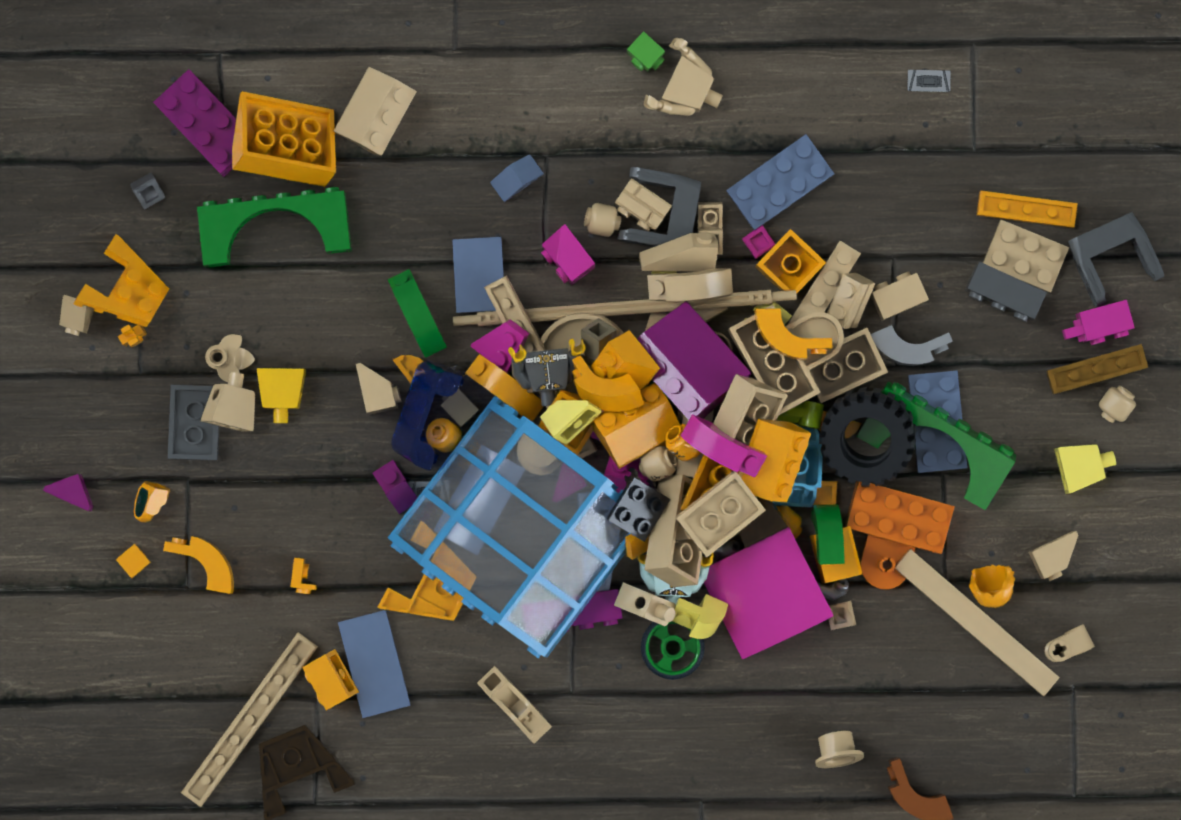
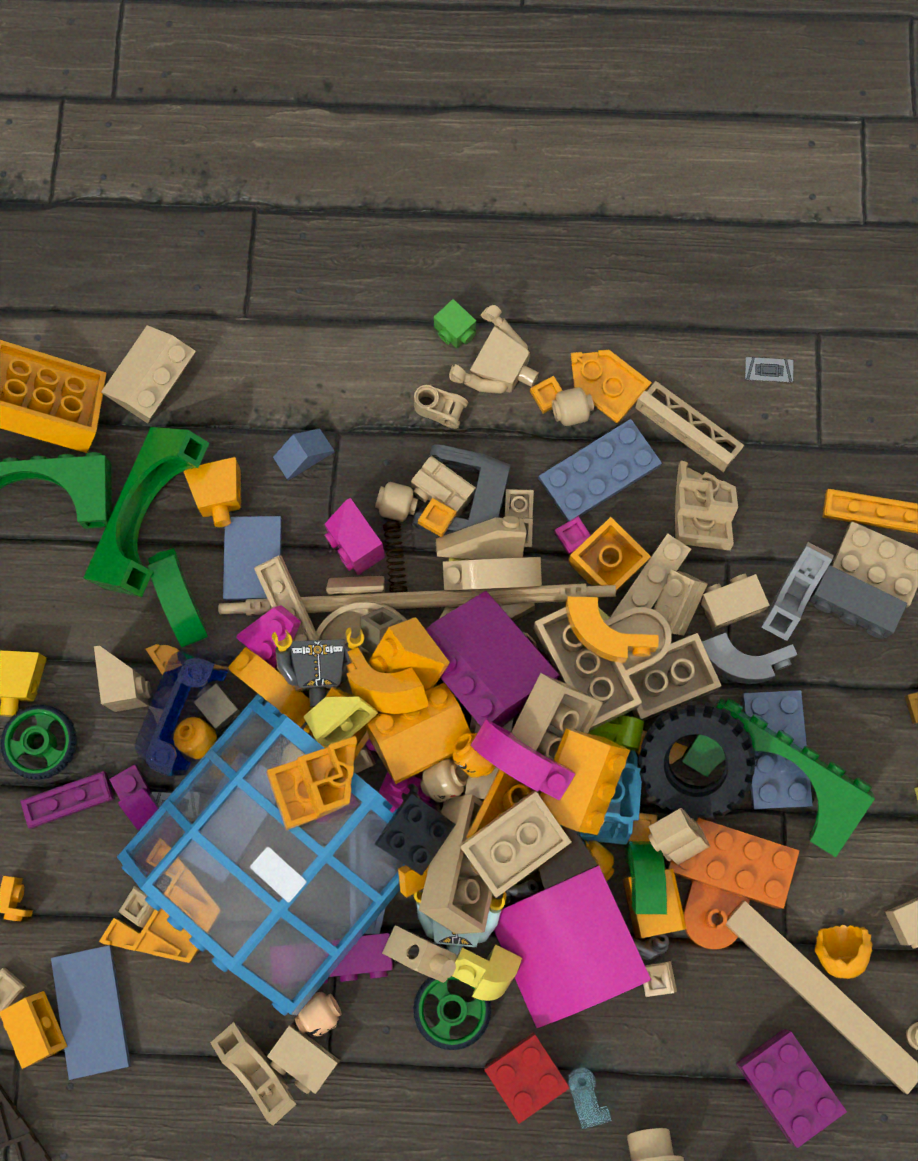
camera: 10 degrees right, 10 degrees down
(326, 458) = (56, 759): none -> green wheel
(337, 491) = (66, 800): none -> magenta tile
(391, 192) = (161, 457): none -> green arch
(407, 577) = (136, 908): none -> tan tile
(443, 216) = (216, 489): none -> light orange torso
(530, 547) = (278, 874): none -> white sticker
(552, 692) = (302, 1059): none -> tan brick
(555, 473) = (314, 783): none -> light orange slope
(563, 657) = (319, 1015): none -> light nougat head
(571, 296) = (355, 585): none -> tan slope
(599, 243) = (394, 527): none -> dark brown piece
(637, 130) = (441, 406): none -> tan piece
(639, 234) = (437, 517): none -> light orange tile
(732, 113) = (545, 392): none -> light orange tile
(735, 697) = (526, 1077): none -> red brick
(753, 126) = (572, 406): none -> tan head
(780, 703) = (582, 1090): none -> clear light blue leg
(784, 100) = (609, 381): none -> light orange tile
(852, 143) = (687, 431): none -> tan fence
(853, 501) = (678, 837): none -> tan brick
(872, 214) = (704, 509): none -> tan slope
(949, 695) = (791, 1088): none -> magenta brick
(952, 286) = (796, 591): none -> light grey arch

